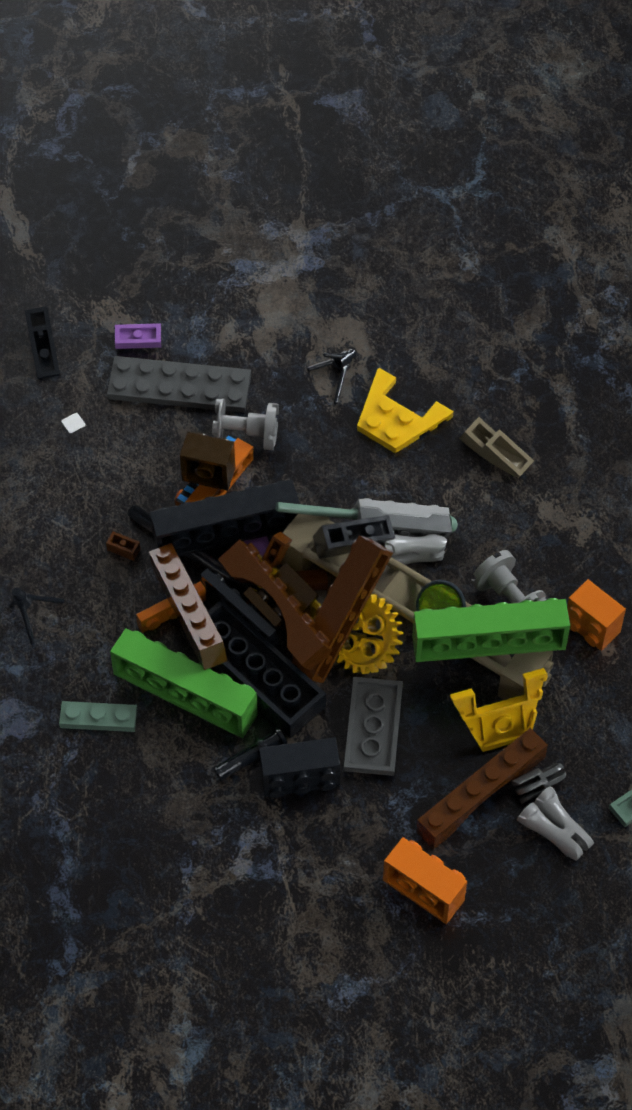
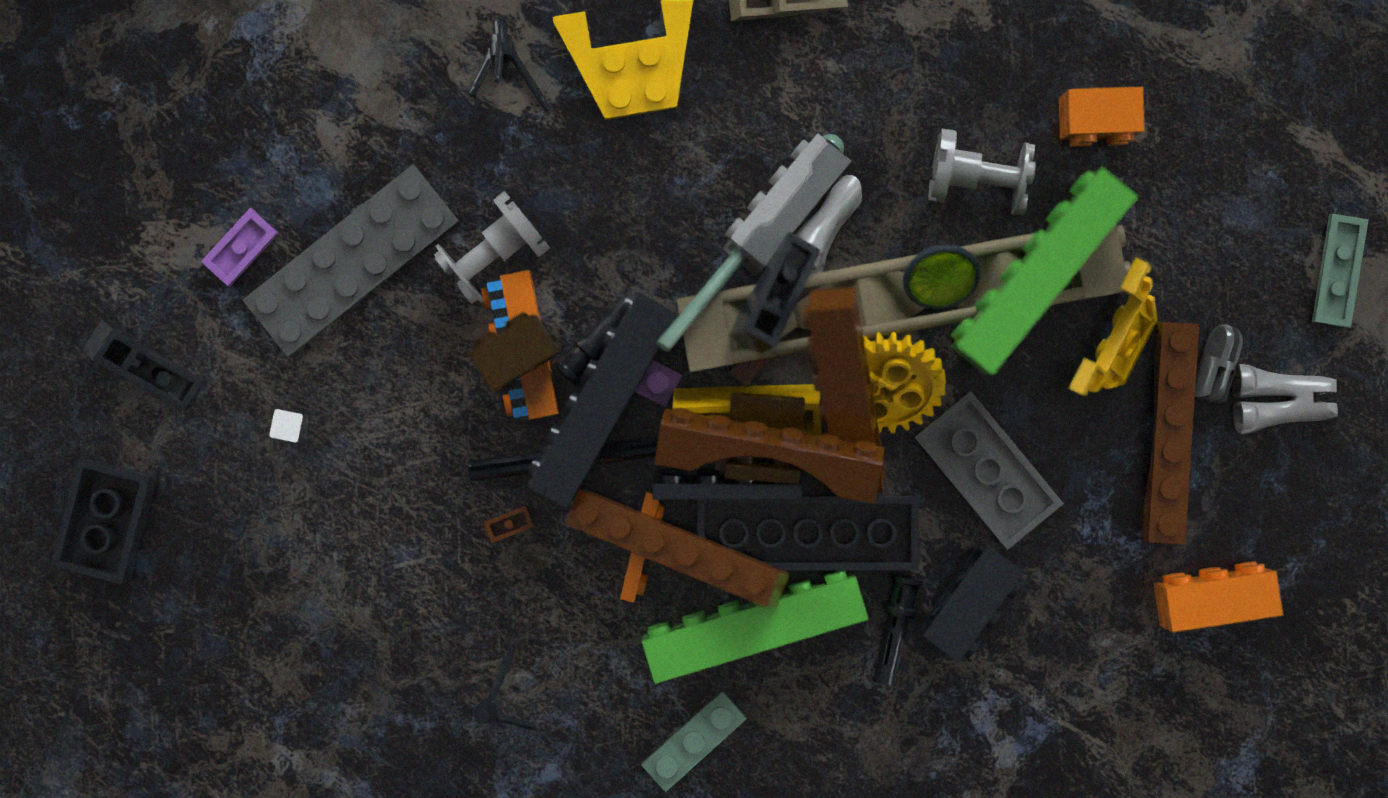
camera: 50 degrees left, 30 degrees up
(276, 549) = (702, 386): reddish brown piece -> none

